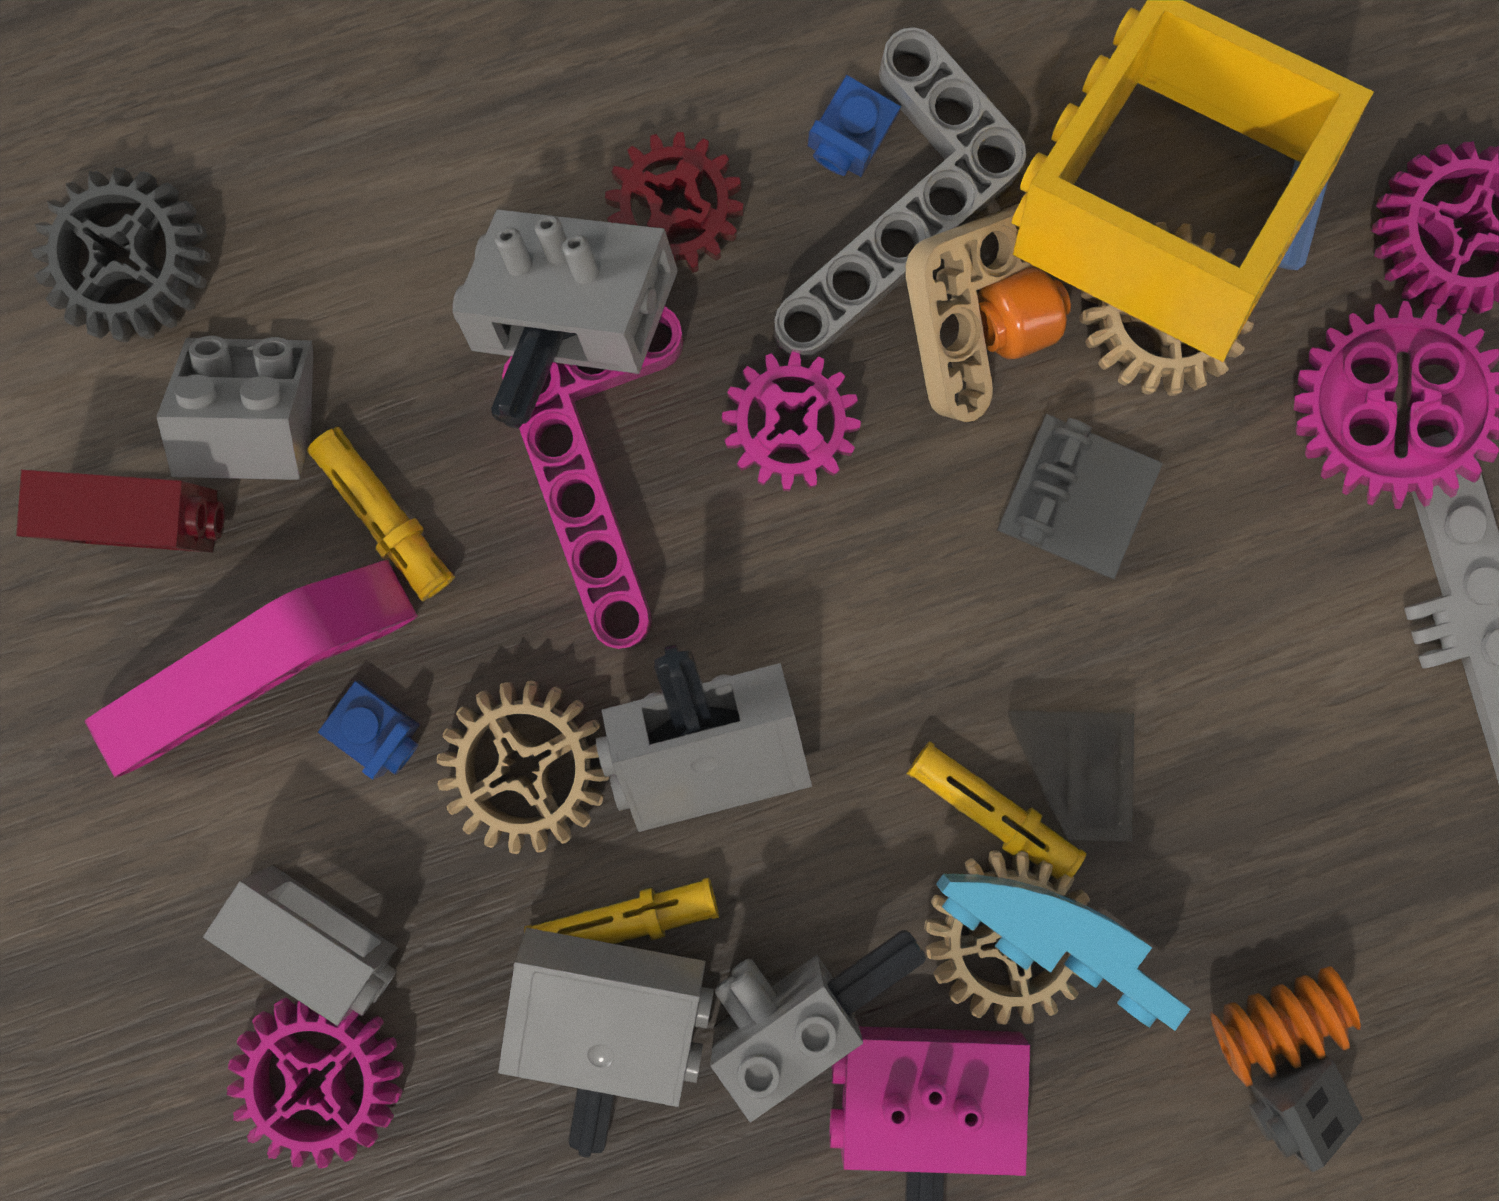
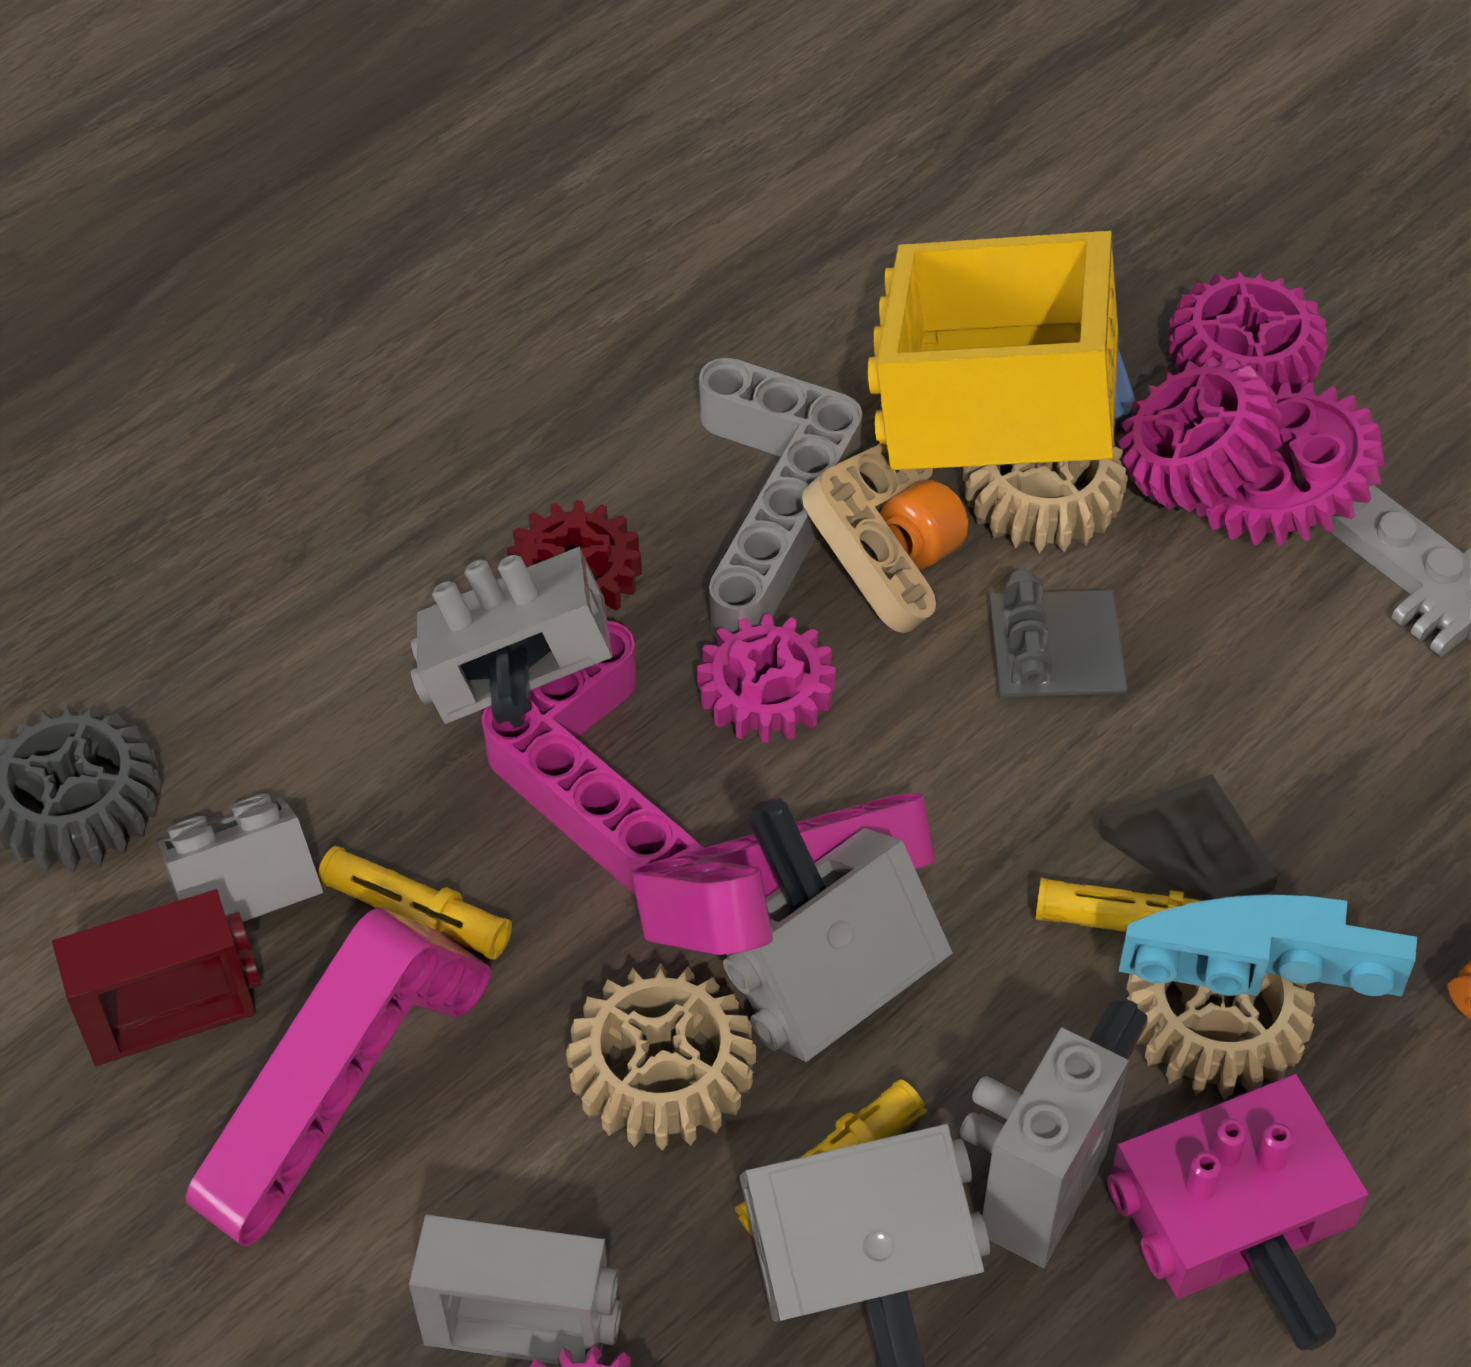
camera: 25 degrees left, 35 degrees down
(371, 731) = (490, 1096): blue bracket -> none
(610, 660) = (718, 893): none -> dark pink beam
(852, 128) = (700, 461): blue bracket -> none
(1366, 307) = (1209, 445): none -> dark pink gear

